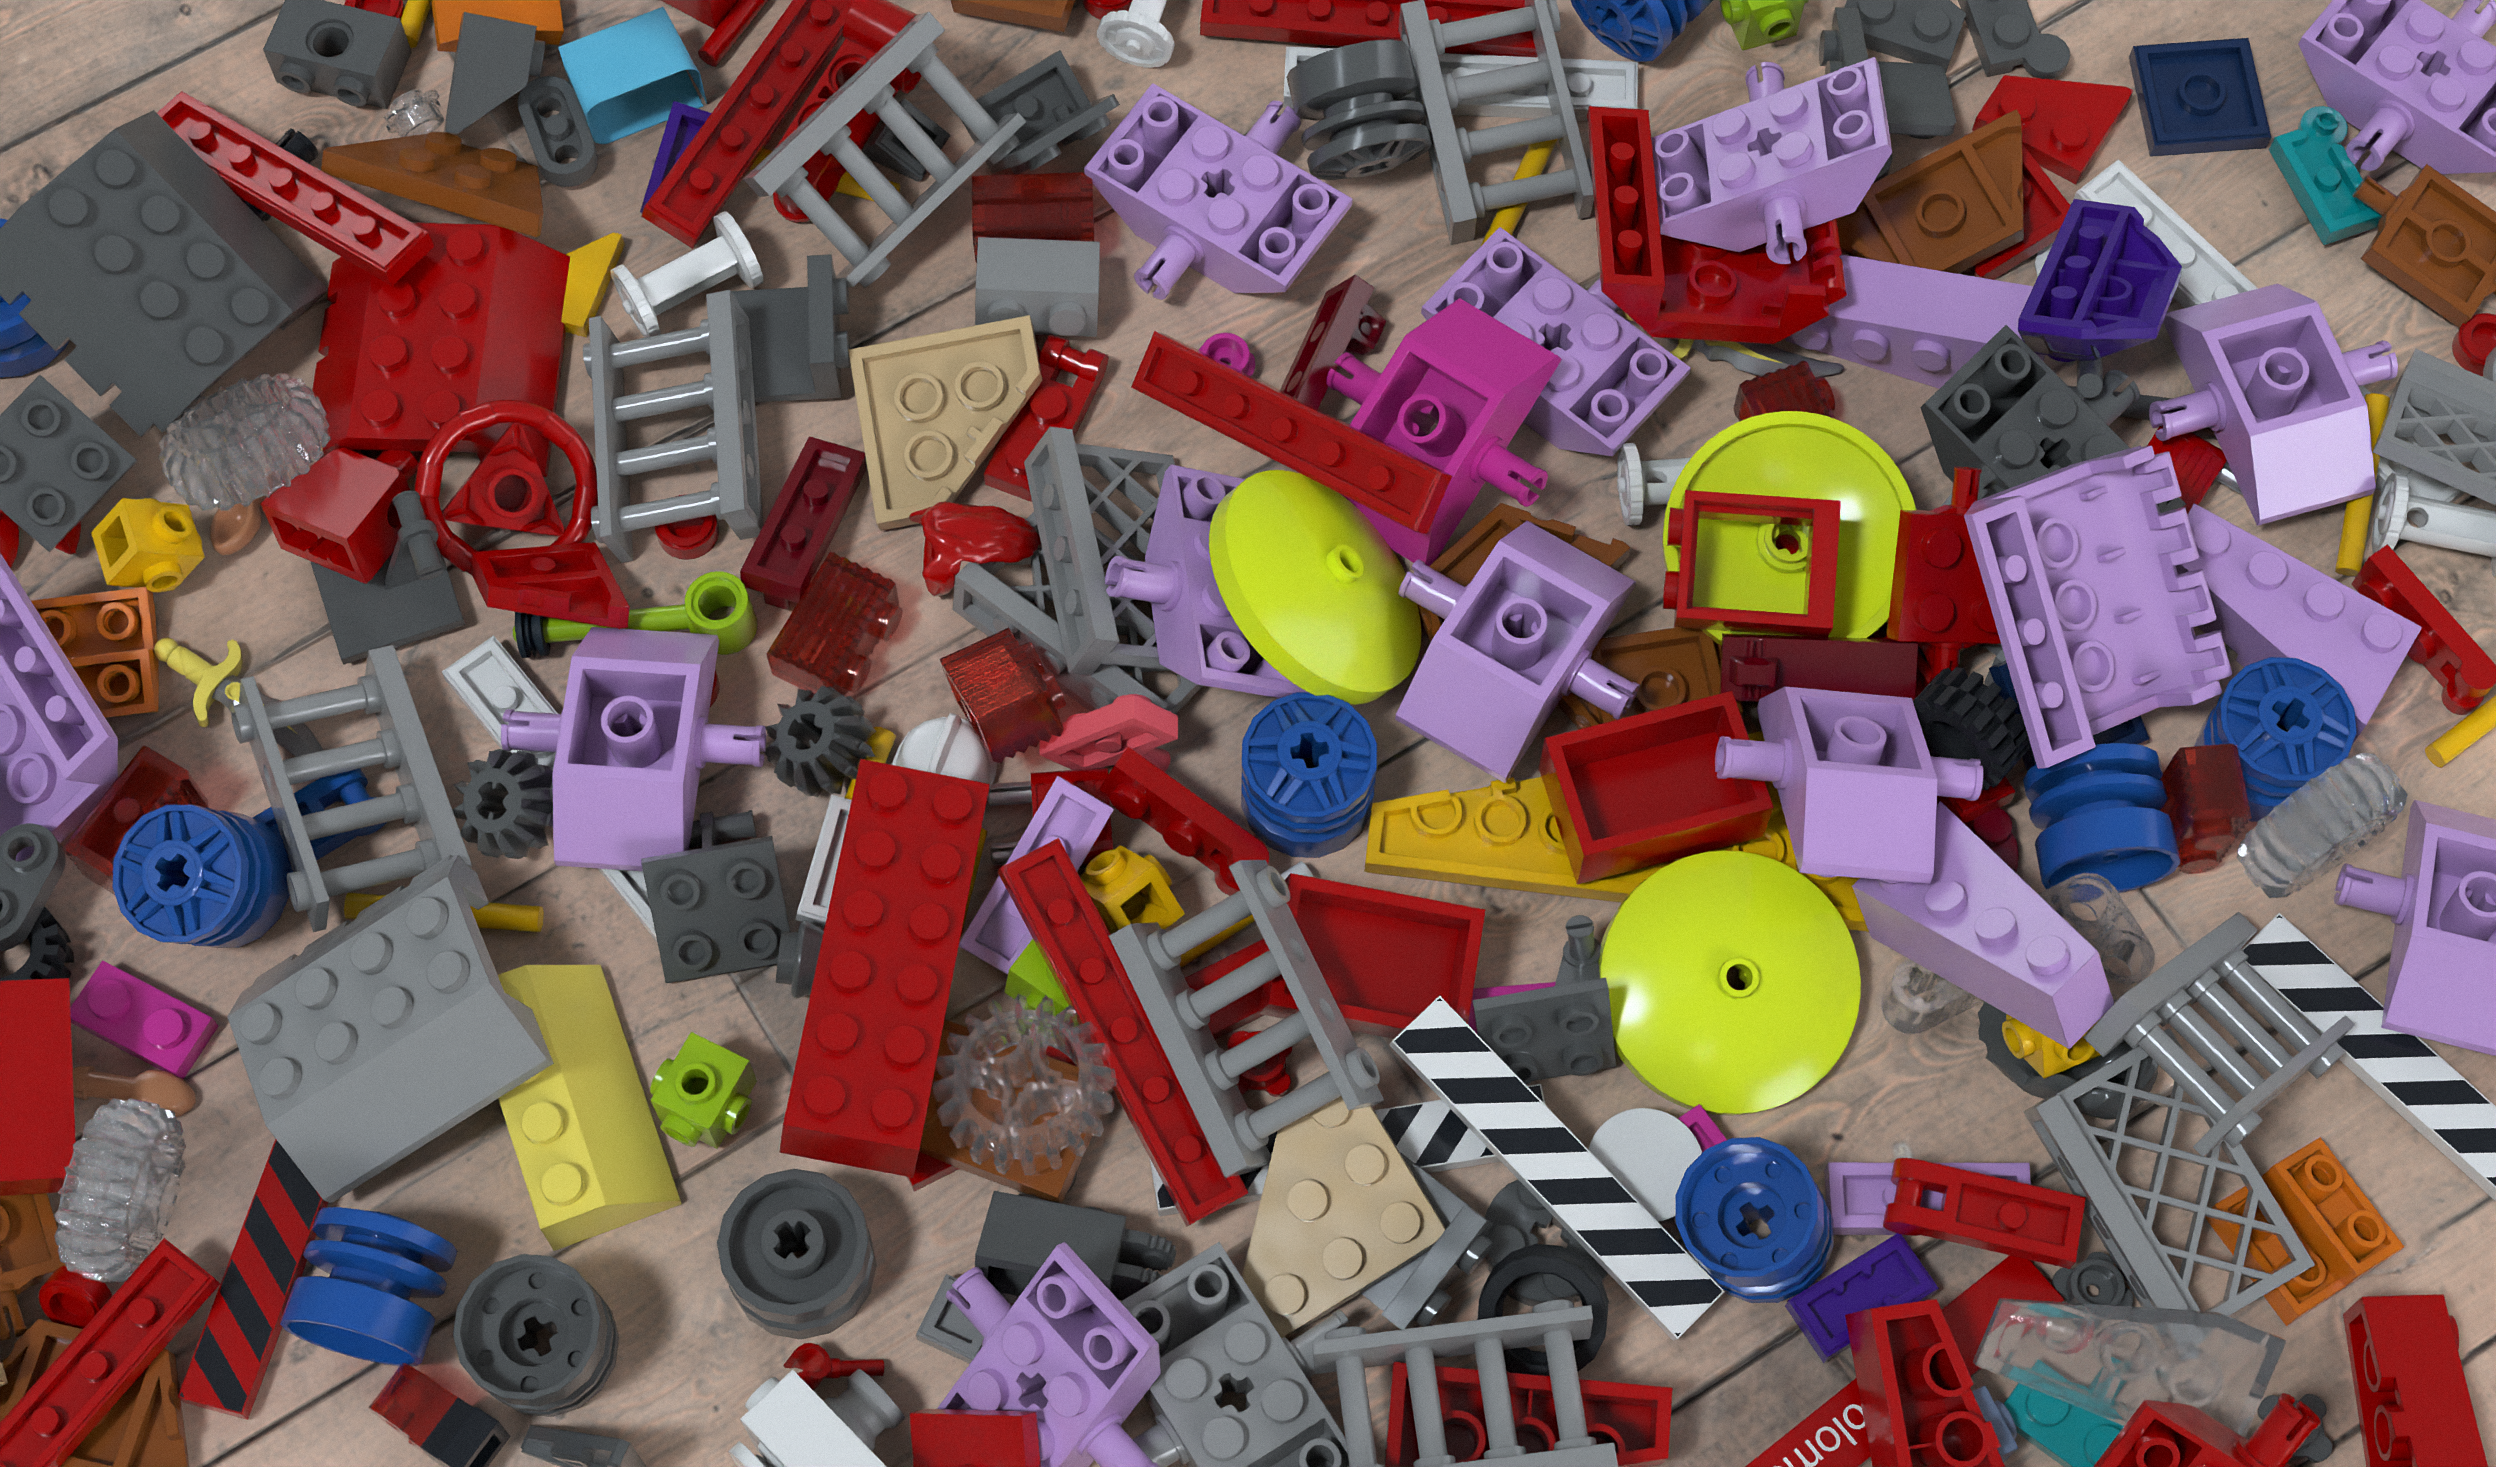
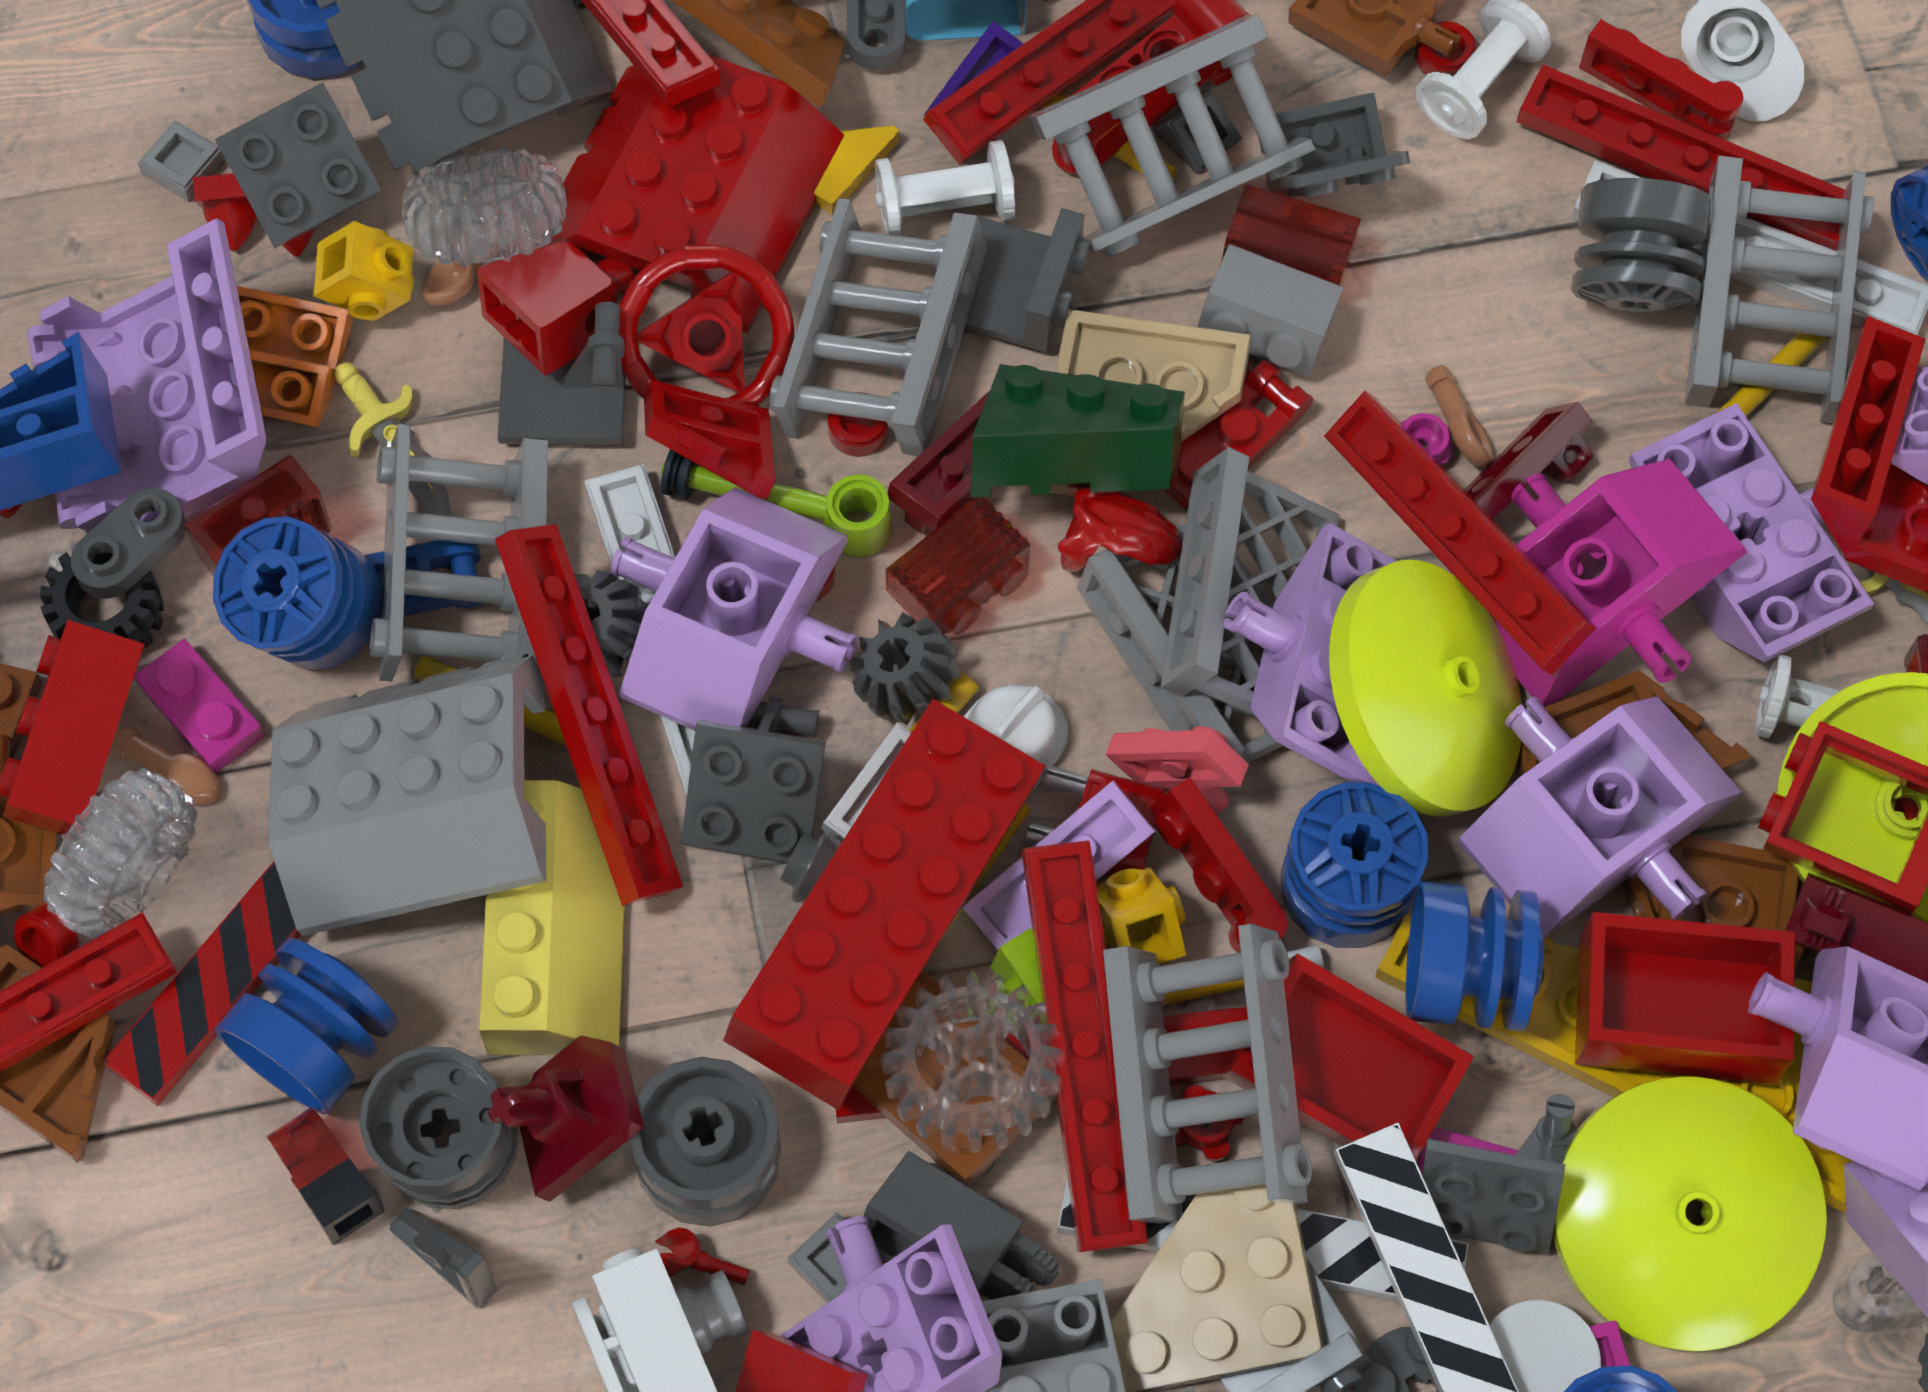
camera: 20 degrees right, 0 degrees up
(532, 889) = (589, 713): none -> red plate
(660, 1274) = (571, 1113): none -> dark red piece
(702, 1092) = (675, 958): lime brick -> none
(898, 460) = (1075, 430): none -> dark green wedge
(1005, 694) = (1094, 685): clear red brick -> none
(1214, 196) = (1470, 280): lavender slope -> none
(1255, 332) = (1462, 424): none -> nougat piece
(1462, 815) = (1473, 956): none -> blue wheel

